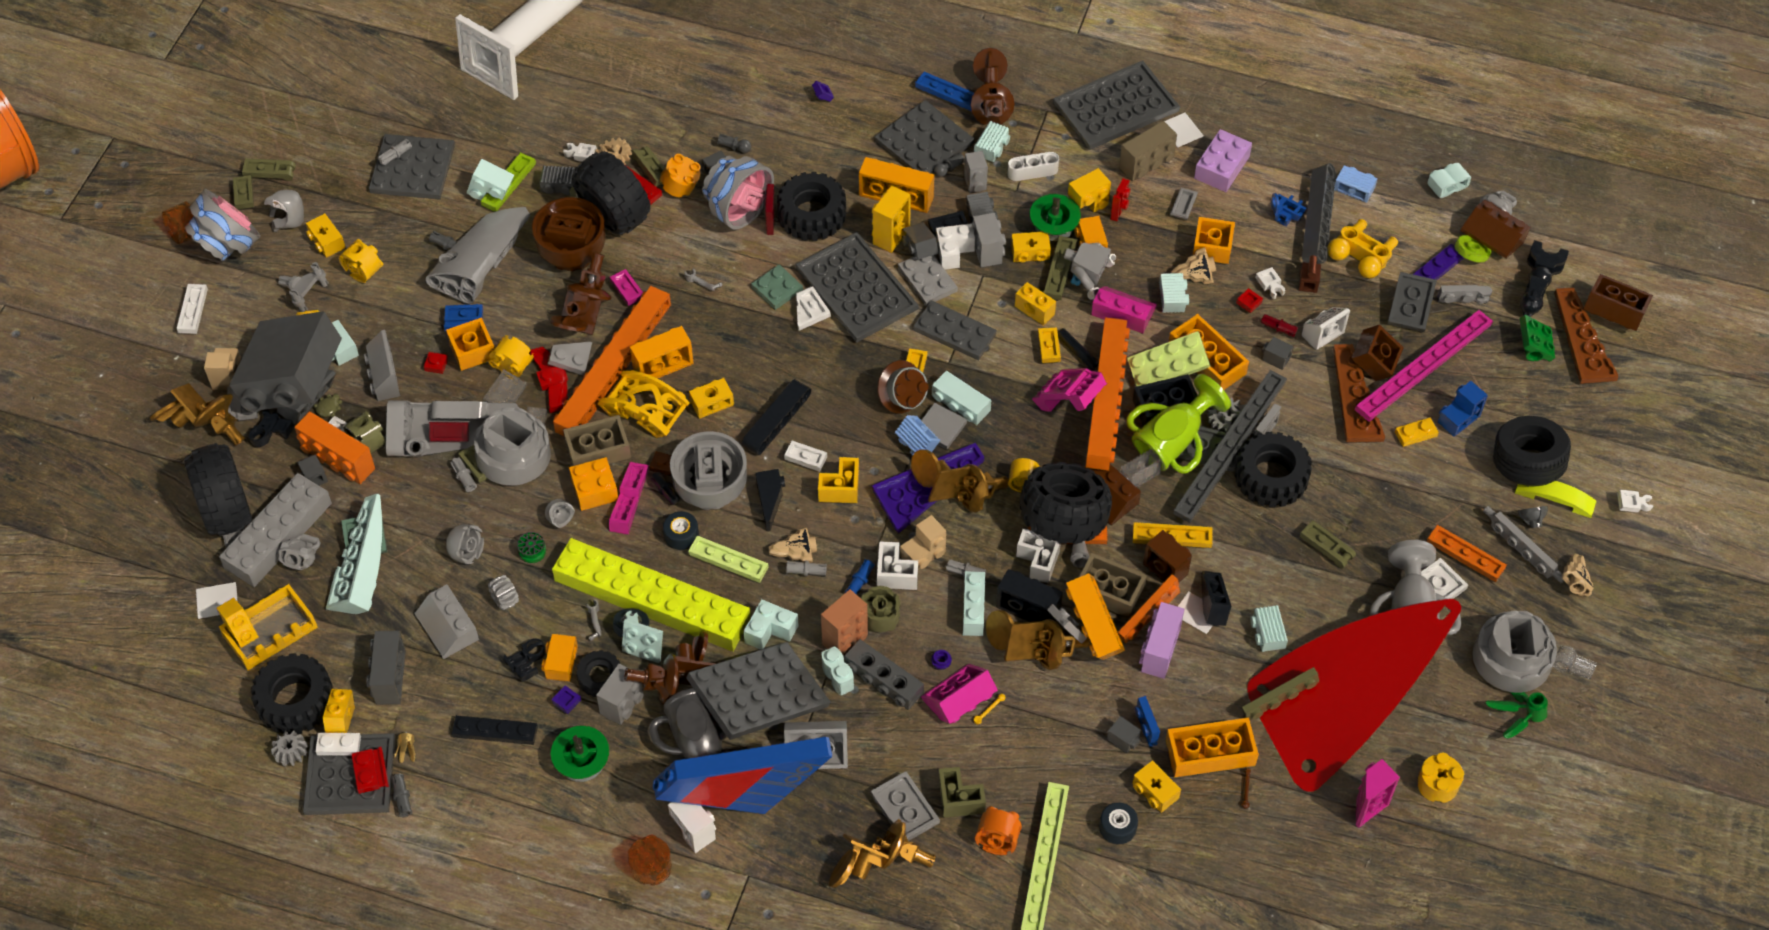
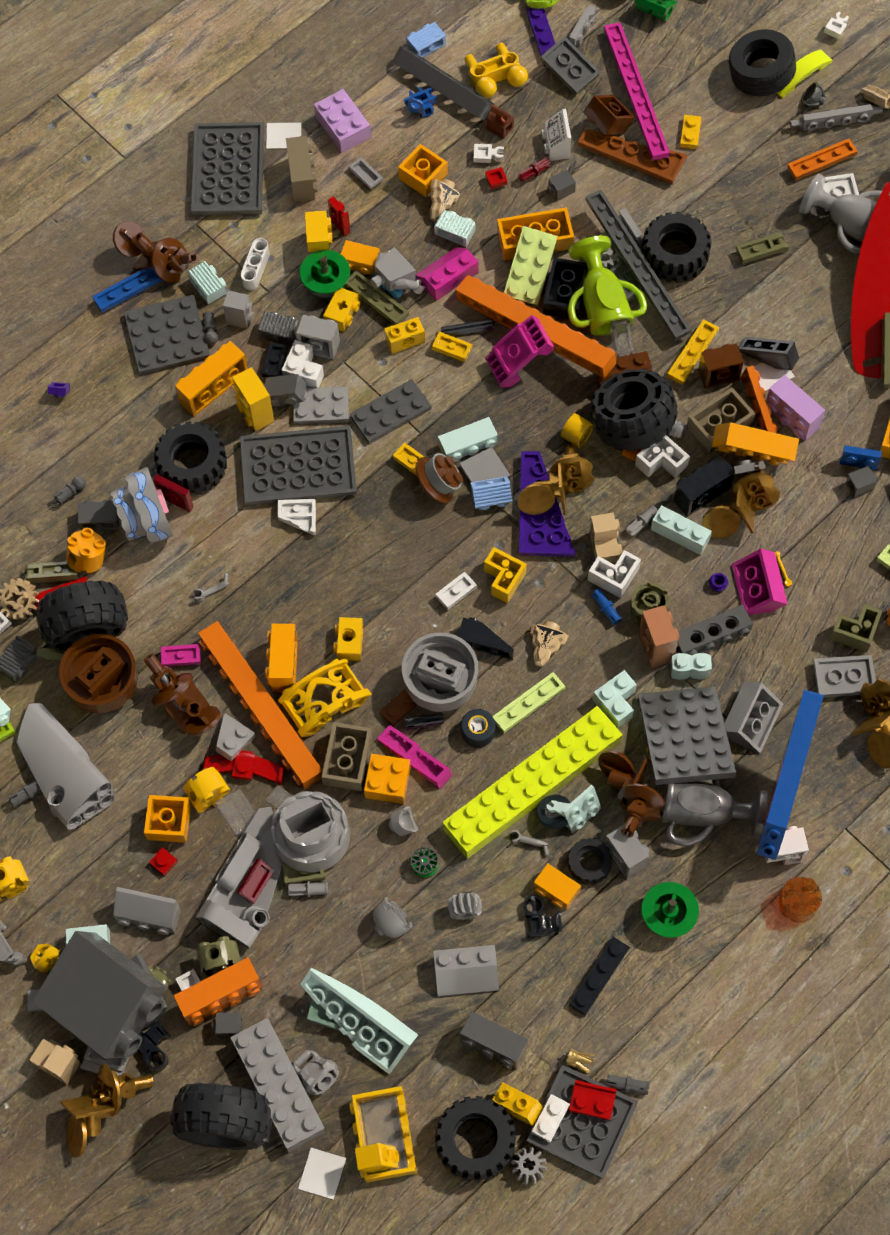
camera: 60 degrees left, 10 degrees up
(461, 314) = (127, 814): blue plate -> none
(566, 699) = (601, 900): dark purple plate -> none
(776, 417) = (401, 595): black beam -> none
(777, 287) = (256, 530): sand green plate -> none
(806, 568) = (572, 644): light grey pin -> none
(1269, 628) = (818, 329): light aqua brick -> none
(1464, 408) = (693, 87): blue brick -> none

